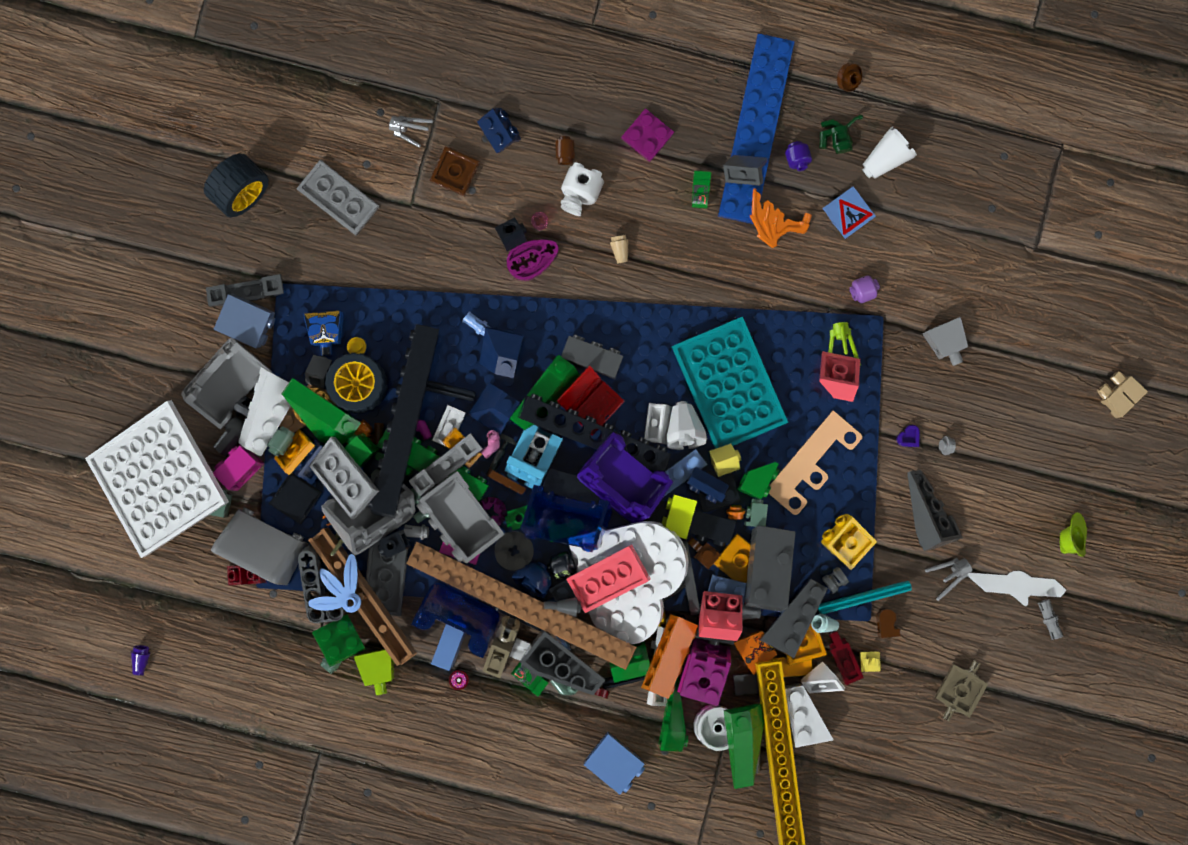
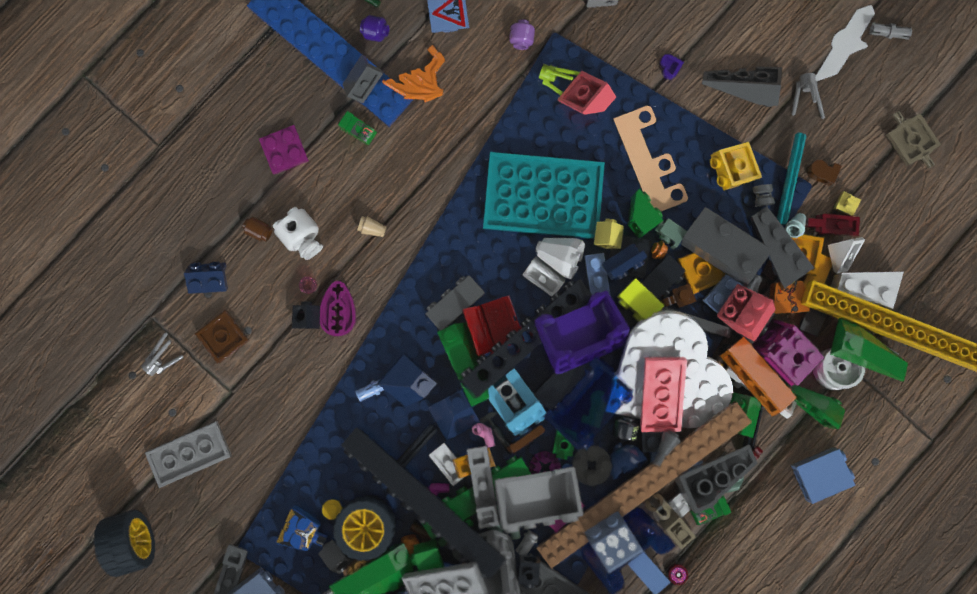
camera: 60 degrees left, 0 degrees up
(458, 602) = (613, 541): none -> sand blue slope
(947, 445) = (695, 37): light grey plate -> none

